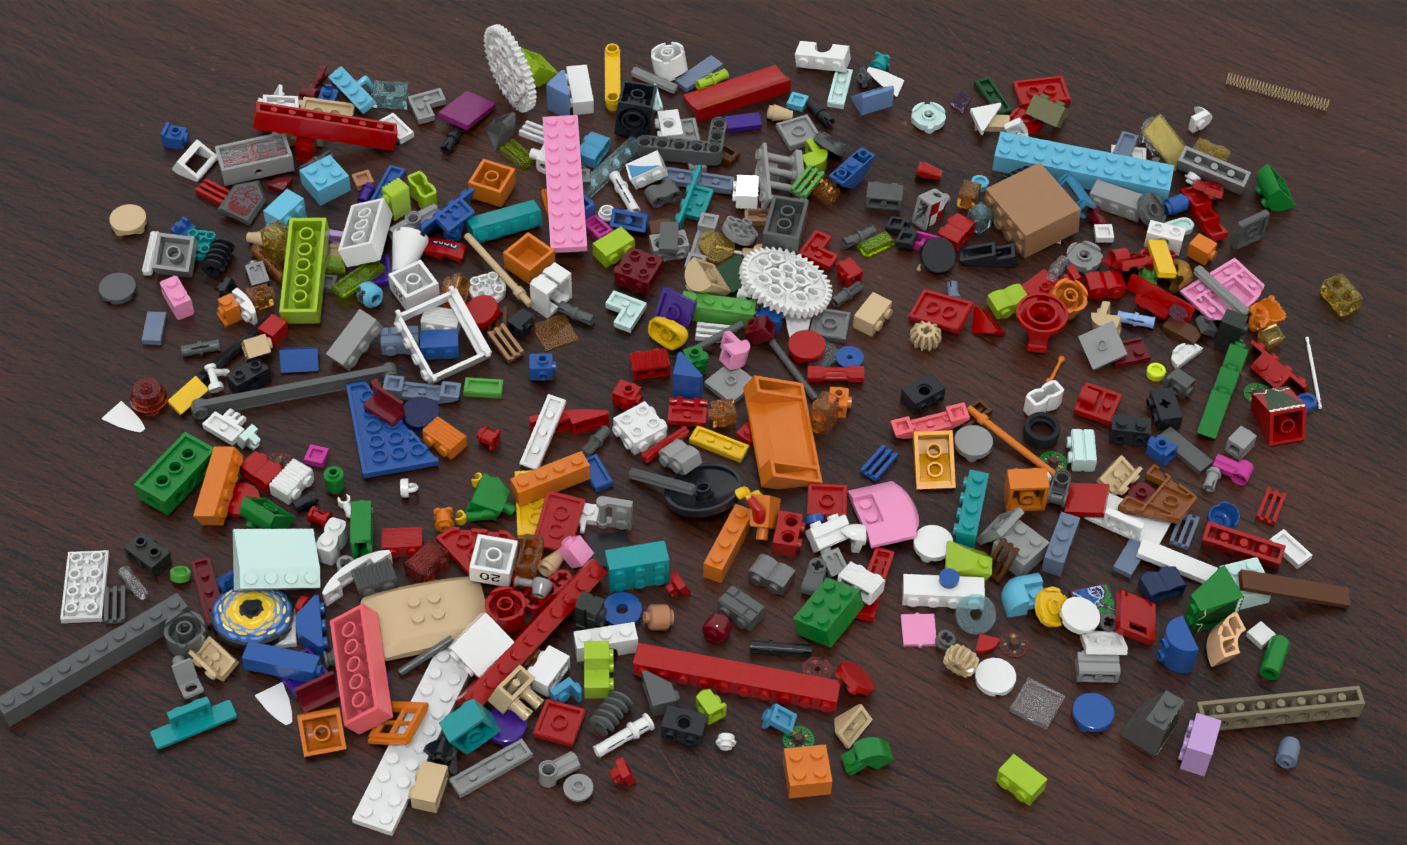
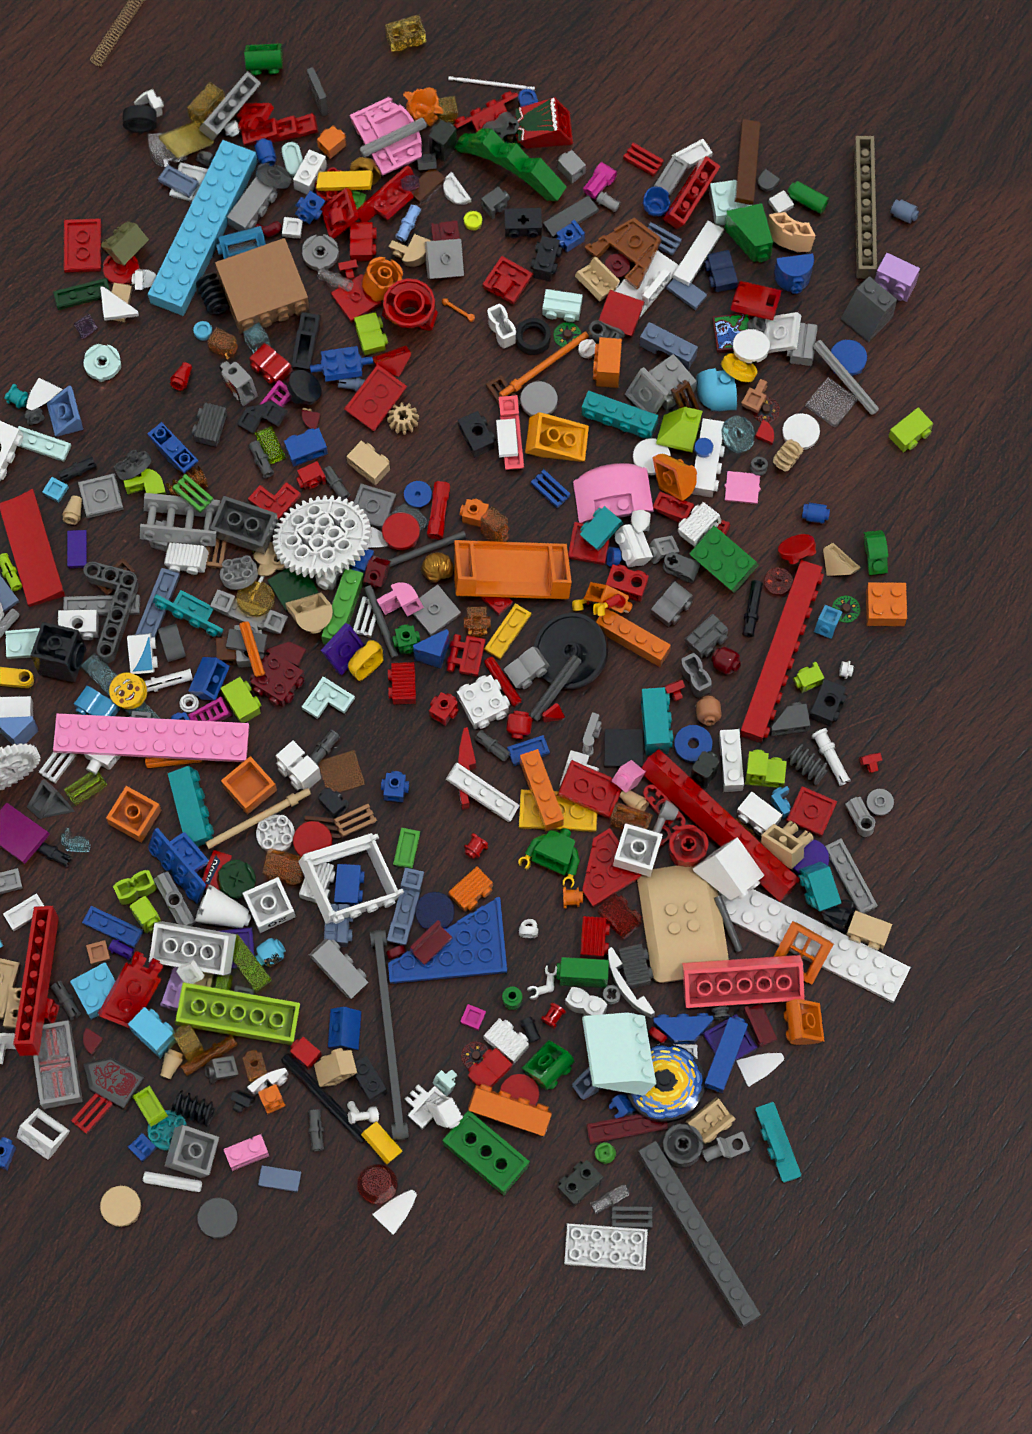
camera: 80 degrees left, 20 degrees up
(212, 429) = (444, 1111): none -> white brick
(219, 227) = (150, 1106): none -> lime tile
(323, 193) = (131, 990): none -> red tile
(339, 229) = (190, 972): none -> white tile
(439, 261) = (236, 878): none -> dark green tile
(464, 146) = (78, 844): none -> clear light blue bracket
(608, 163) = (128, 691): none -> yellow head
(620, 459) = (519, 724): none -> red head
(637, 486) = (554, 713): none -> red slope
(659, 237) = (251, 648): none -> orange axle
(667, 278) = (289, 652): none -> dark red tile
(694, 599) = (698, 678): none -> flat silver brick
(774, 370) = (437, 567): none -> pearl gold hair
(839, 498) = (600, 528): none -> teal brick
(878, 266) = (305, 446): none -> blue brick
(901, 695) = (815, 512): none -> blue brick
(908, 270) = (311, 419): none -> dark red tile
(913, 555) = (675, 476): none -> orange brick
(919, 415) = (507, 438): none -> white slope
(970, 282) = (341, 363): none -> blue plate
(1022, 628) = (755, 398): none -> nougat plate
(1066, 708) = (847, 379): none -> light grey axle
(1126, 238) = (309, 207): none -> blue brick
(1177, 108) = (139, 118): none -> black tyre
(1260, 373) = (503, 125): none -> dark grey axle
(1261, 529) = (672, 174): none -> light grey tile
(1282, 620) = (767, 181): none -> dark grey tile

